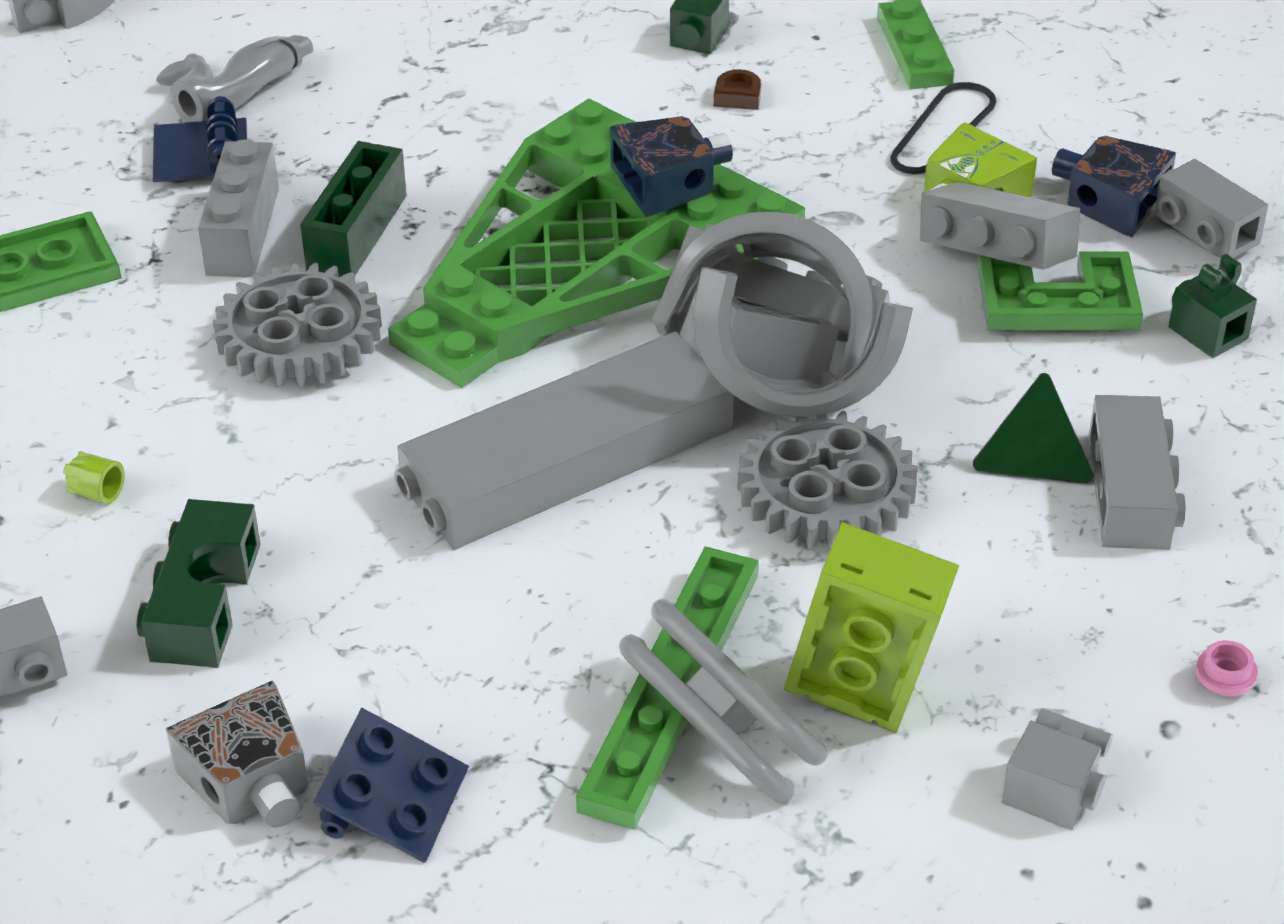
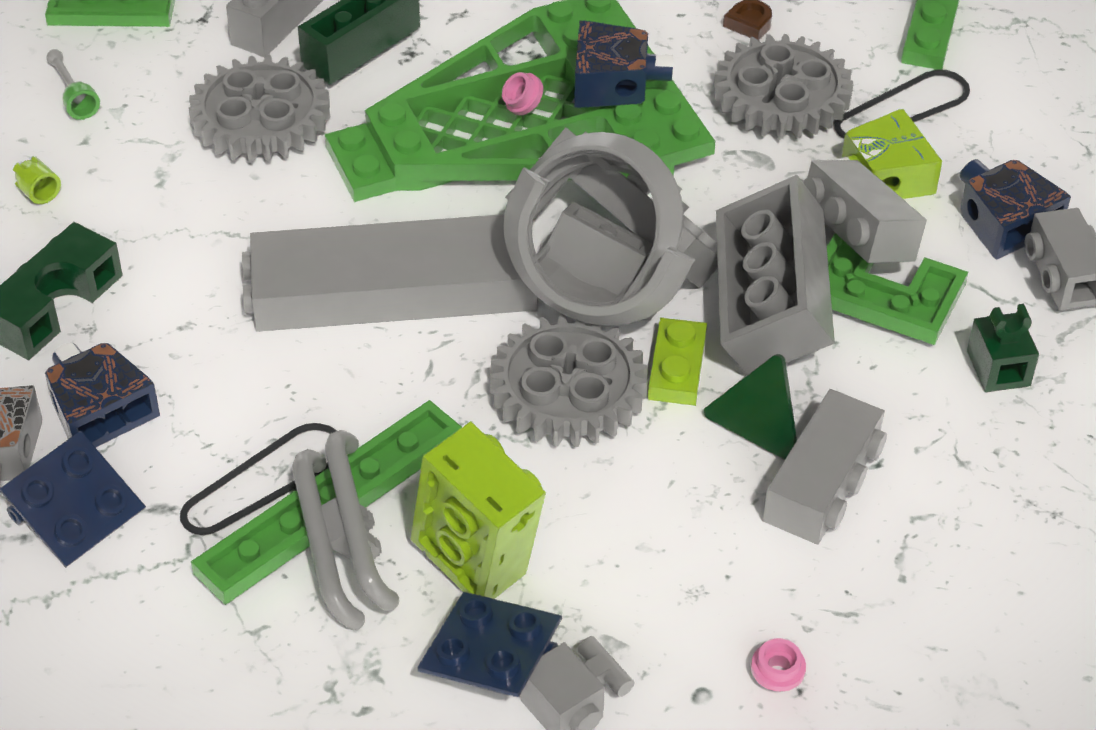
camera: 25 degrees right, 5 degrees up
(78, 377) = (84, 97): none -> bright green hinge
(337, 667) = (99, 392): none -> dark blue torso
(570, 216) = (522, 93): none -> bright pink plate
(594, 712) = (238, 470): none -> black piece
(858, 145) = (783, 86): none -> light grey gear
(914, 418) = (677, 361): none -> lime plate
(956, 752) = (490, 644): none -> dark blue hinge
(967, 310) = (773, 275): none -> light grey brick

